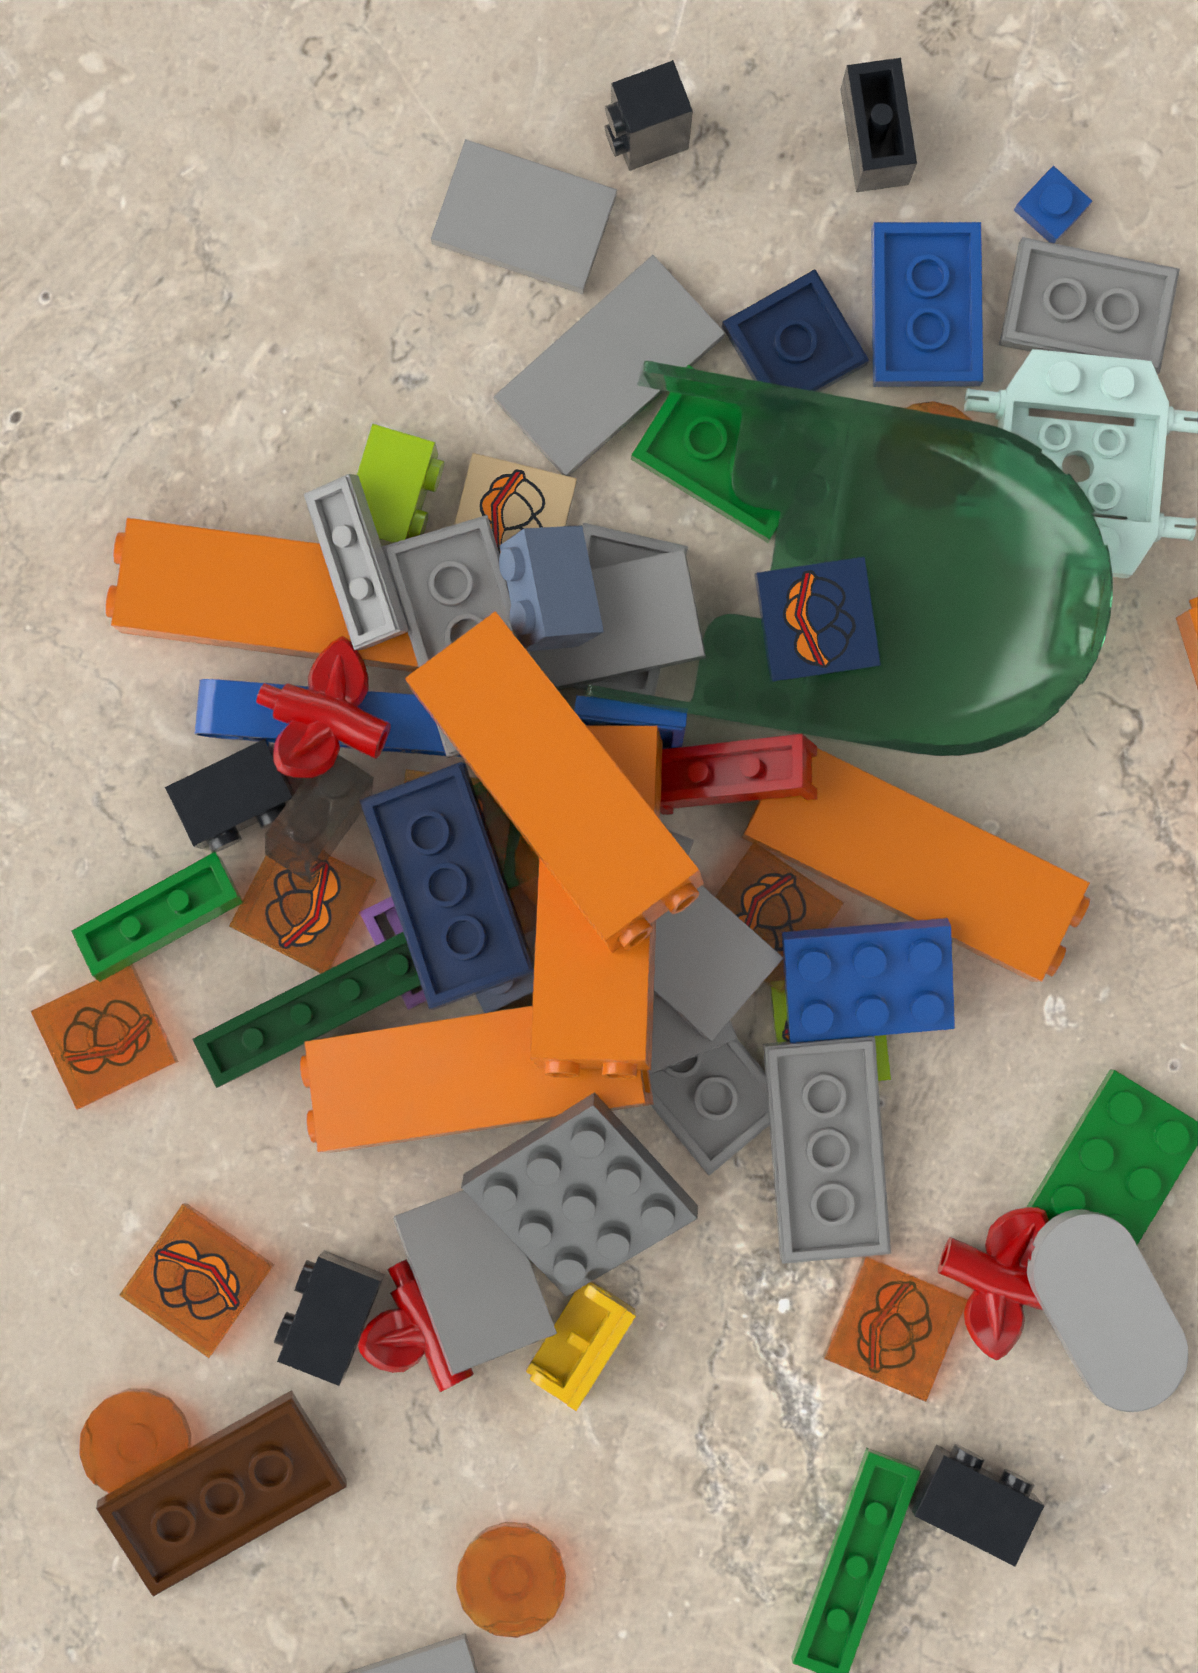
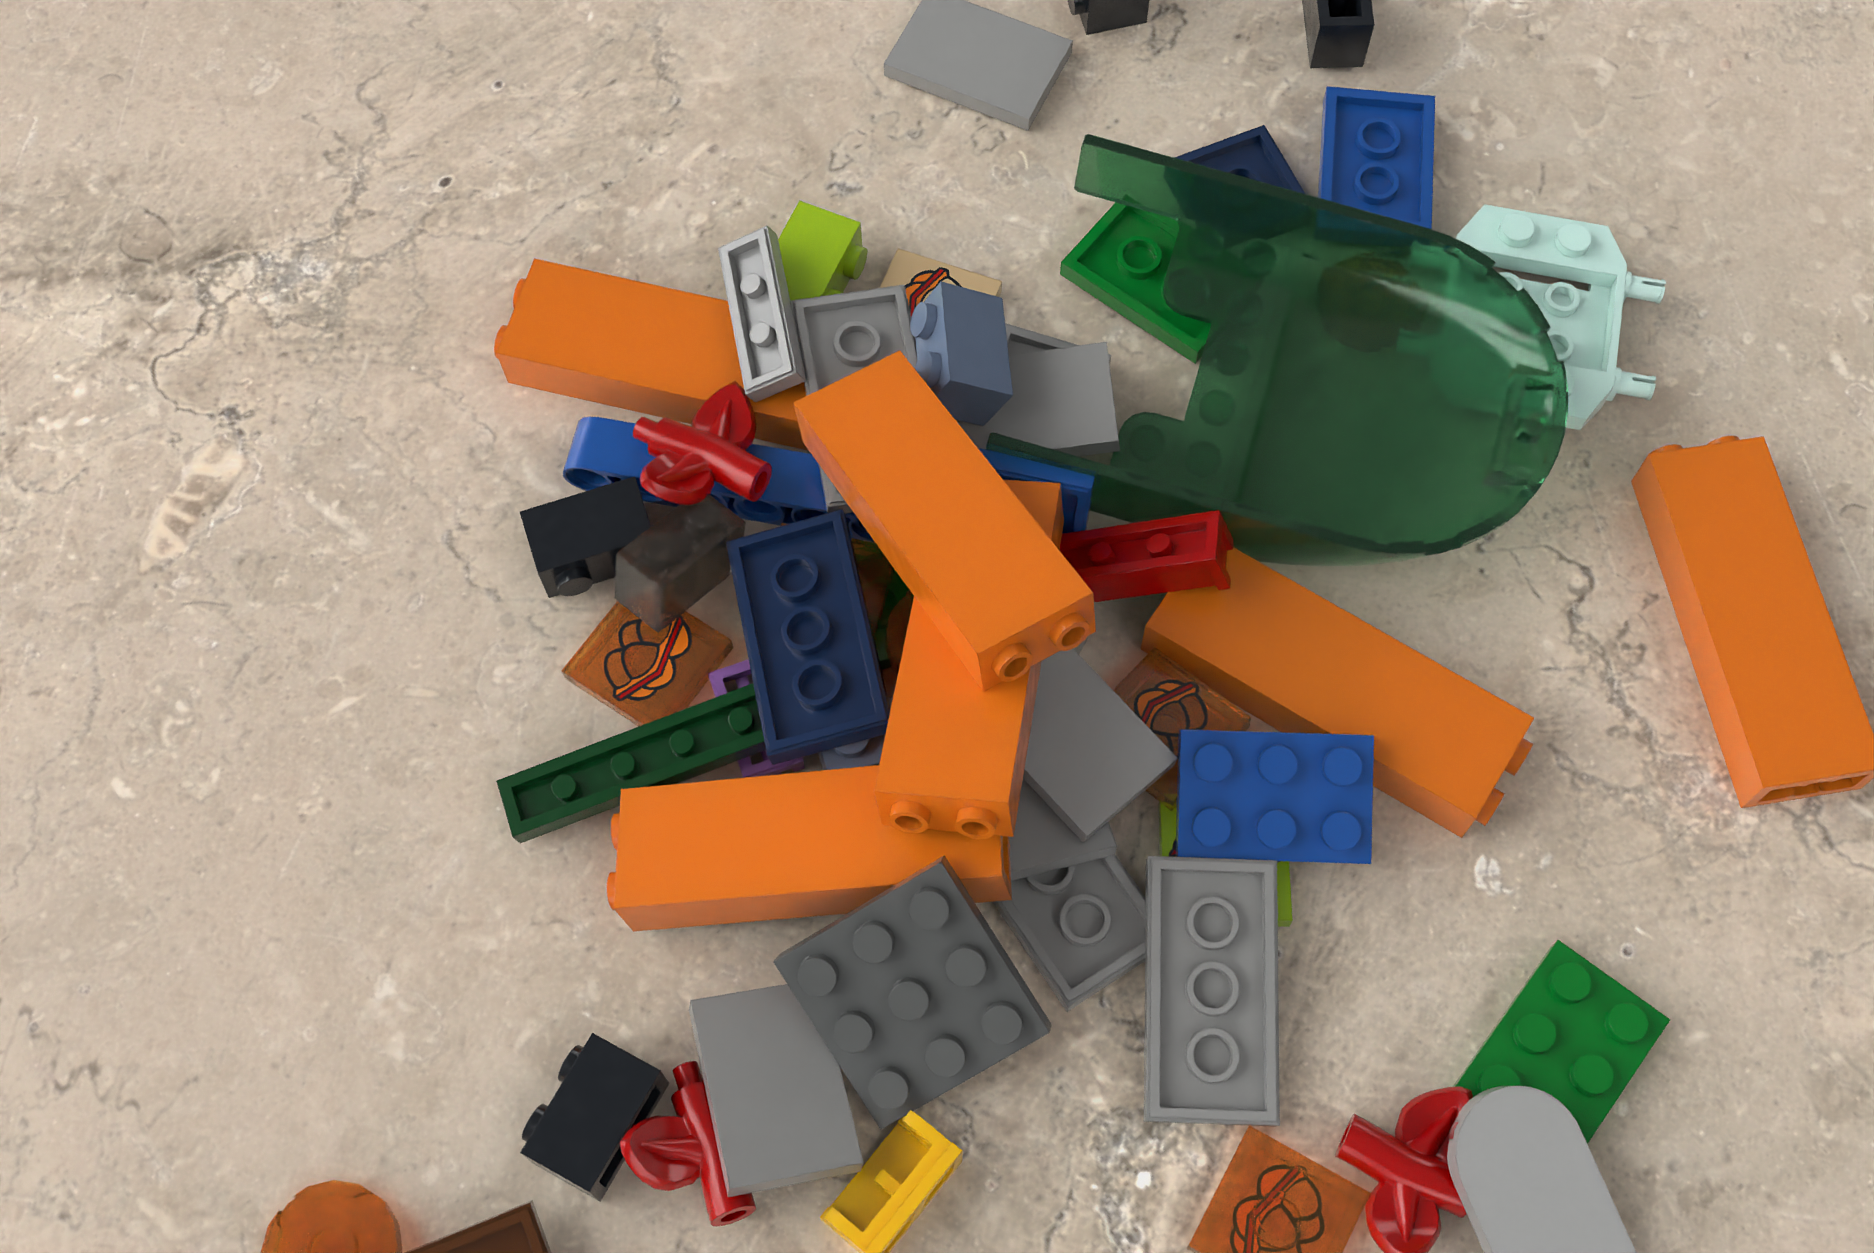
camera: 10 degrees right, 20 degrees down
(104, 1037) = (400, 776): clear orange tile -> none
(157, 916) = (484, 651): green plate -> none
(196, 1280) = (446, 1059): clear orange tile -> none
(588, 378) = (1028, 196): light grey tile -> none
(817, 619) = (1243, 424): dark blue tile -> none
(1053, 205) = (1507, 97): blue plate -> none
(1088, 303) = (1541, 176): light grey tile -> none

